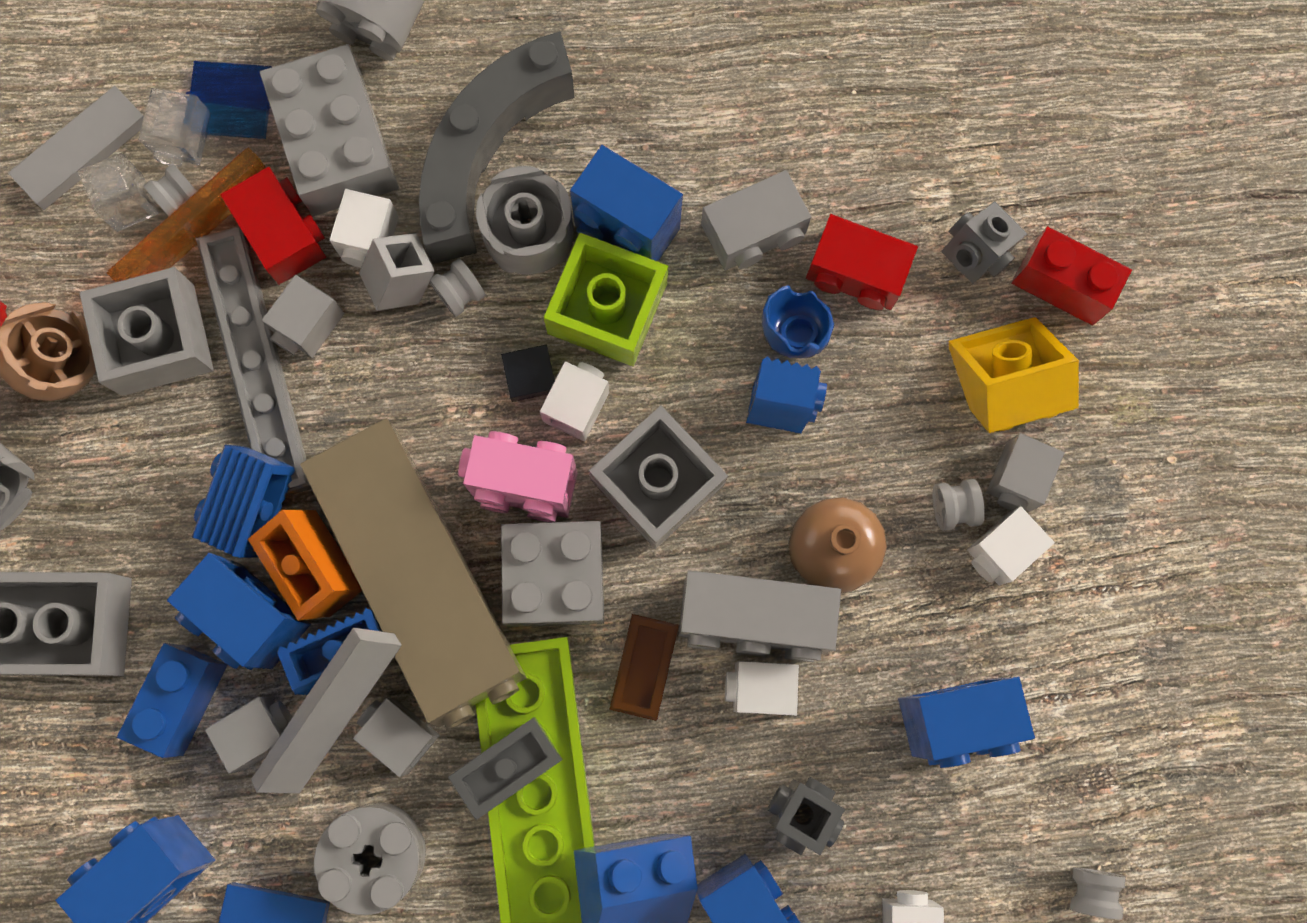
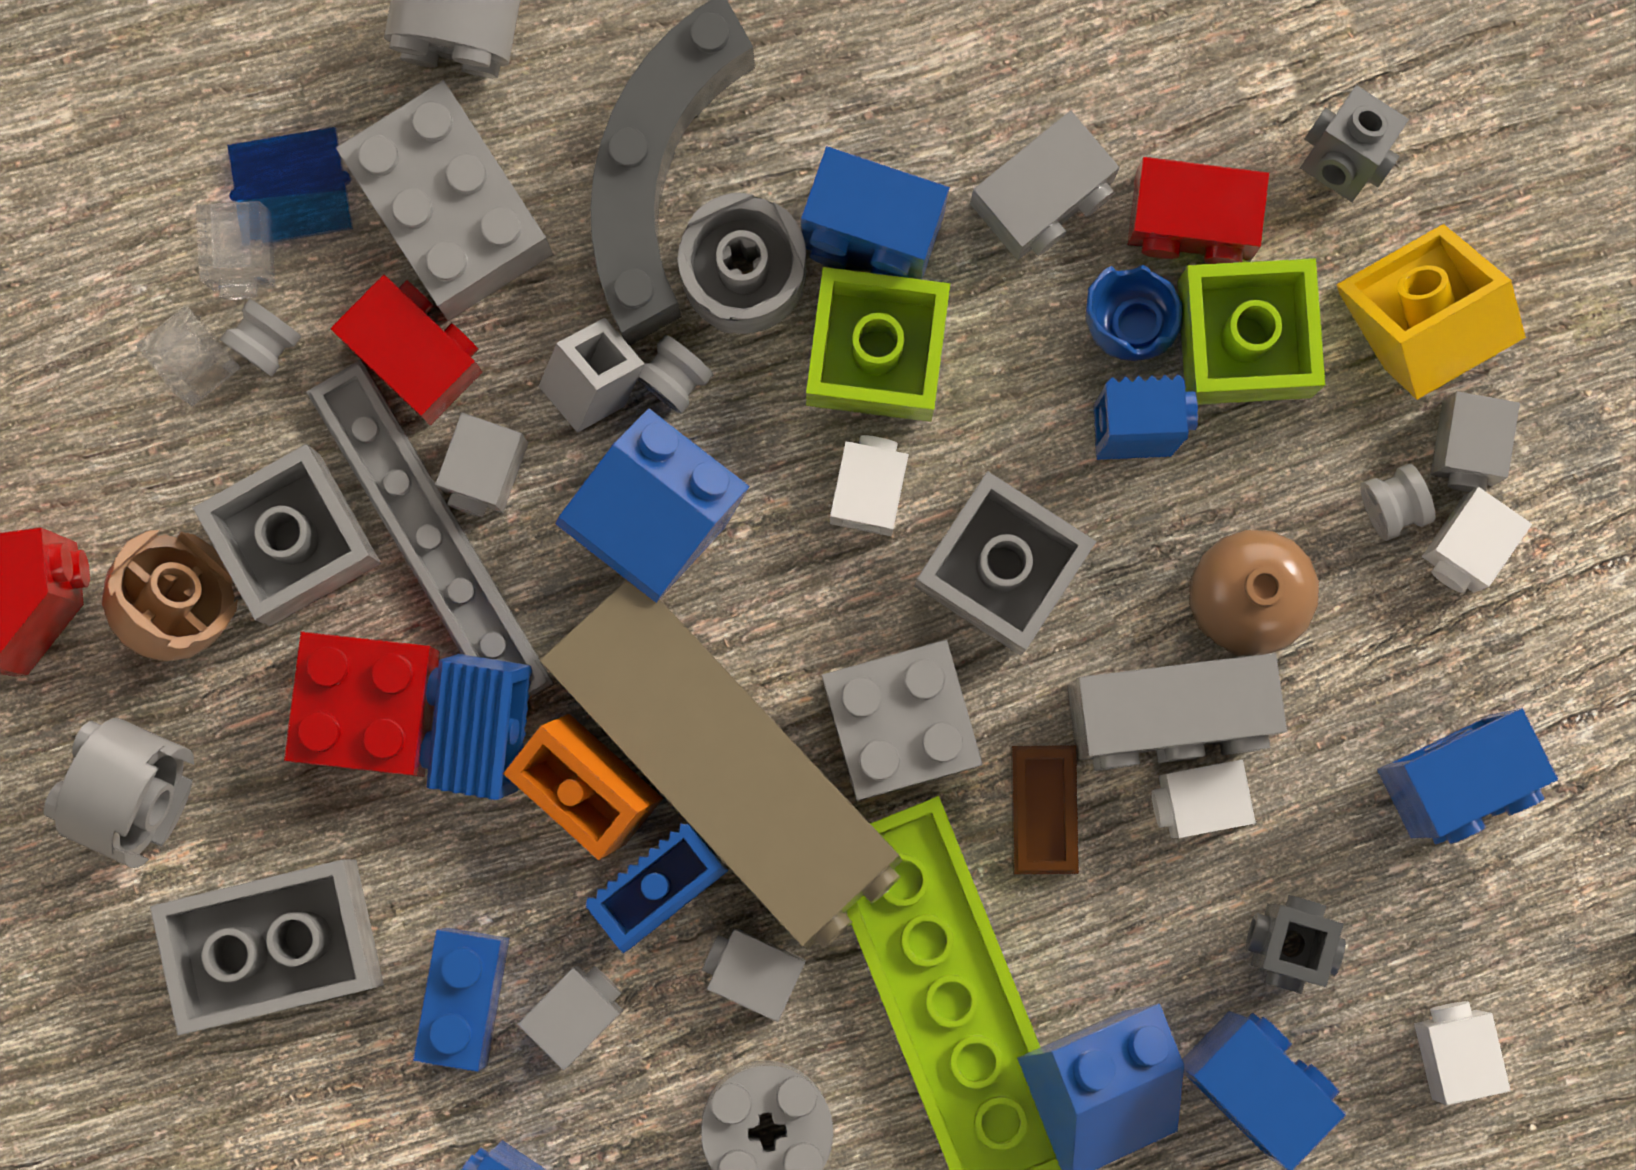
camera: 10 degrees left, 5 degrees up
(79, 144) = (109, 304): light grey tile -> none
(160, 463) = (360, 704): none -> red brick
(190, 221) = (293, 374): clear orange tile -> none
(236, 613) = (518, 870): blue brick -> none
(326, 711) = (666, 964): light grey tile -> none
(359, 222) = (526, 324): white brick -> none
(413, 373) = (652, 505): none -> blue slope
(505, 768) = (908, 978): dark grey plate -> none
(519, 476) = (828, 607): bright pink brick -> none
(528, 372) = (796, 464): black tile -> none
(879, 355) = (1251, 331): none -> lime brick
(1071, 276) = (1478, 161): red brick -> none

